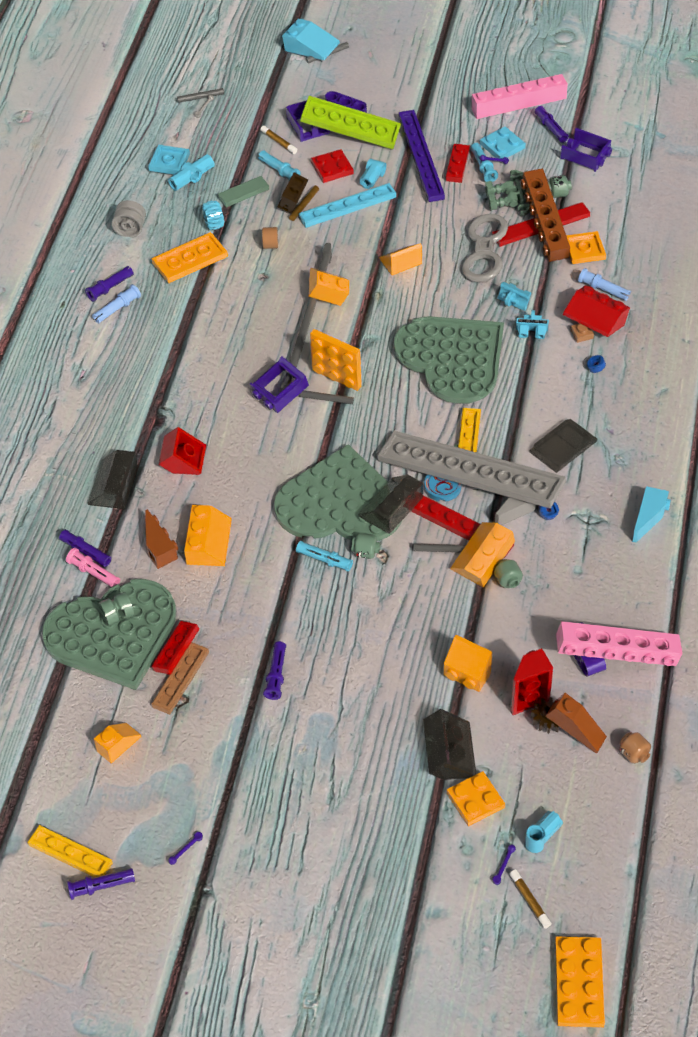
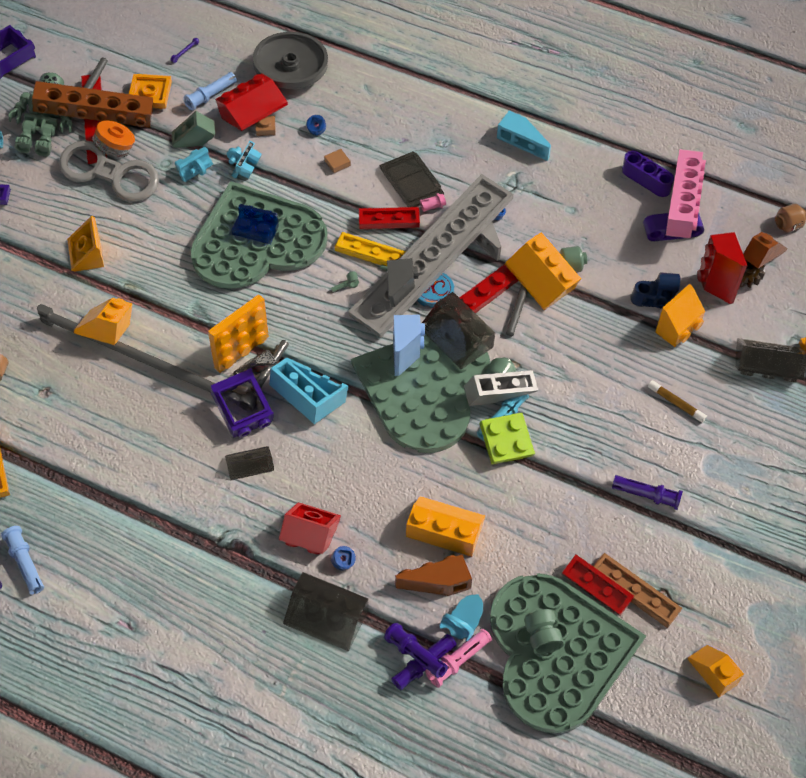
camera: 80 degrees left, 5 degrees up
(93, 532) = (408, 645): none -> dark purple pin
(124, 565) = (464, 617): none -> medium azure piece
(161, 480) = (343, 558): none -> blue tile
(233, 407) = (249, 463): none -> clear smoke slope
(298, 560) = (507, 438): none -> lime plate
(302, 420) = (308, 392): none -> medium azure wedge
(315, 380) = (258, 363): none -> clear smoke slope
(341, 540) = (499, 387): none -> light grey slope
(359, 464) = (407, 341): none -> light blue slope
(380, 682) = (677, 401): none -> pearl gold bar
(426, 448) = (400, 279): none -> dark grey slope
(430, 428) = (352, 281): none -> sand green hand
(457, 347) = (255, 224): none -> clear blue bracket
(494, 640) = (656, 292): none -> dark blue piece
(508, 436) = (389, 218): none -> red plate
(515, 238) = (113, 139): none -> orange piece
(538, 462) = (433, 202): none -> bright pink pin
(550, 287) = (193, 131): none -> sand green slope
(562, 388) = (337, 160): none -> medium nougat tile
(573, 208) = (96, 73): none -> dark grey bar
(633, 254) = (174, 58): none -> dark purple hinge
(645, 611) = (647, 173): none -> dark purple beam
(661, 324) = (291, 59): none -> dark grey dish

